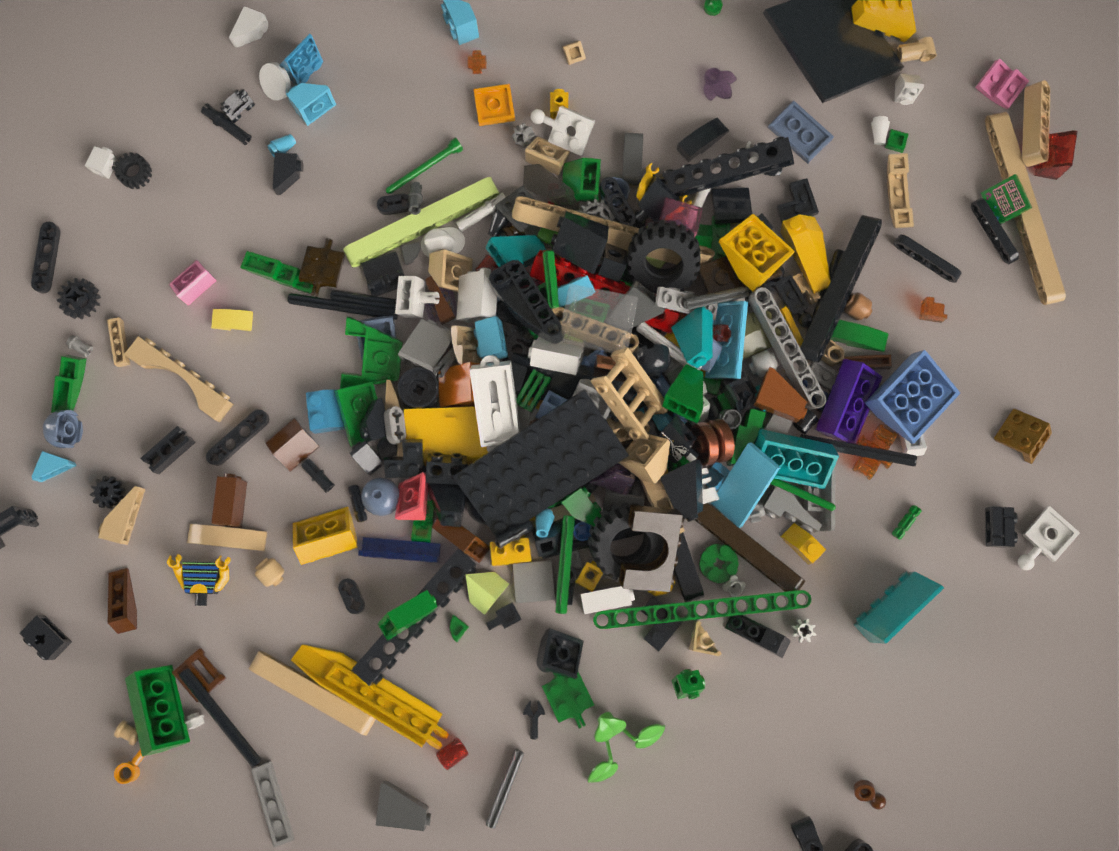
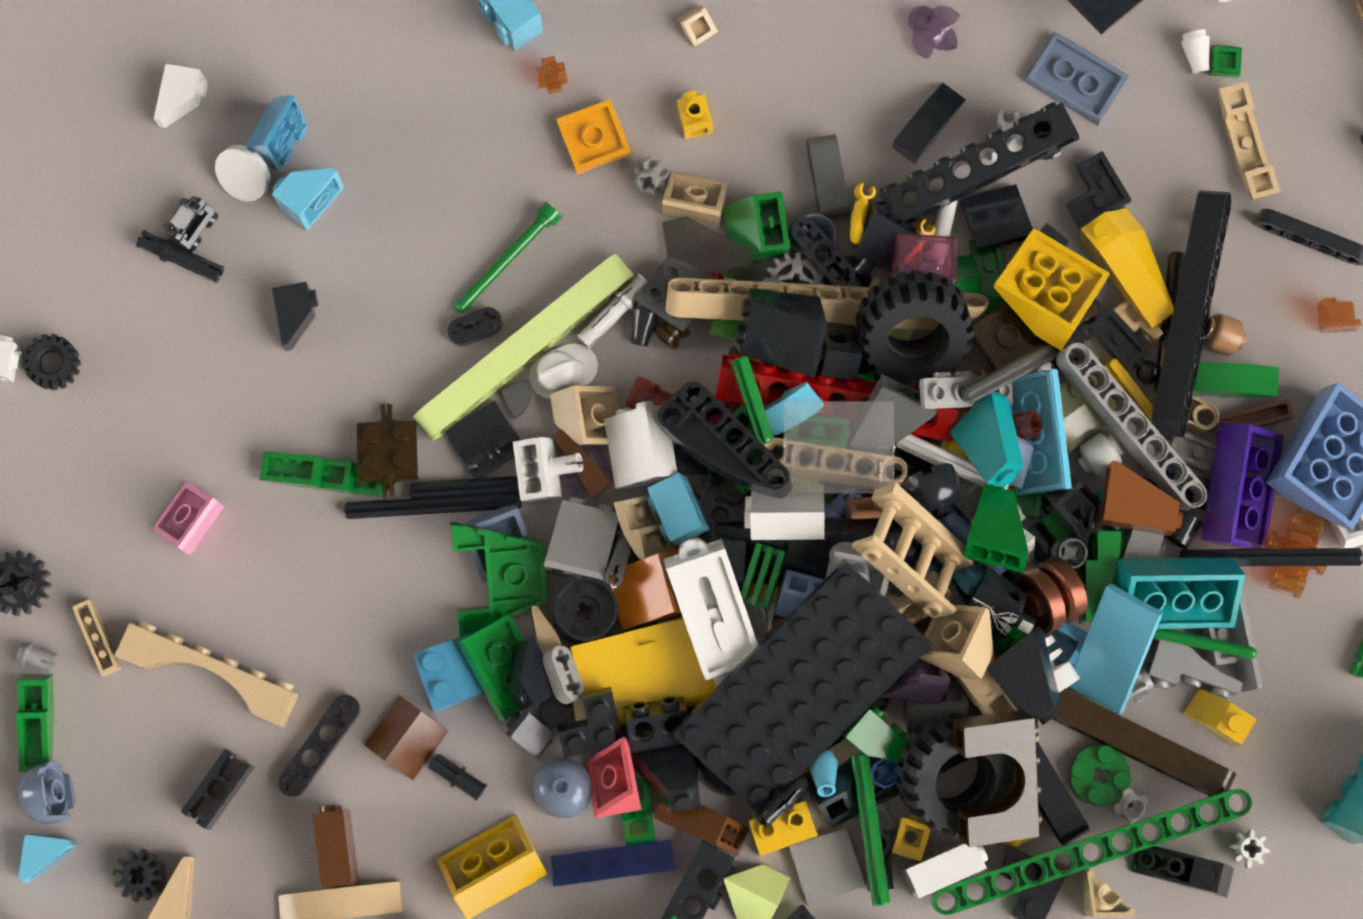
camera: 15 degrees left, 0 degrees up
(232, 319) = (265, 564): light yellow slope -> none
(281, 144) = (275, 272): medium azure cone -> none
(356, 500) = (529, 806): black axle -> none
(415, 198) = (507, 312): dark grey pin -> none
(514, 248) = (681, 361): teal slope -> none
(559, 135) = (710, 138): white plate -> none

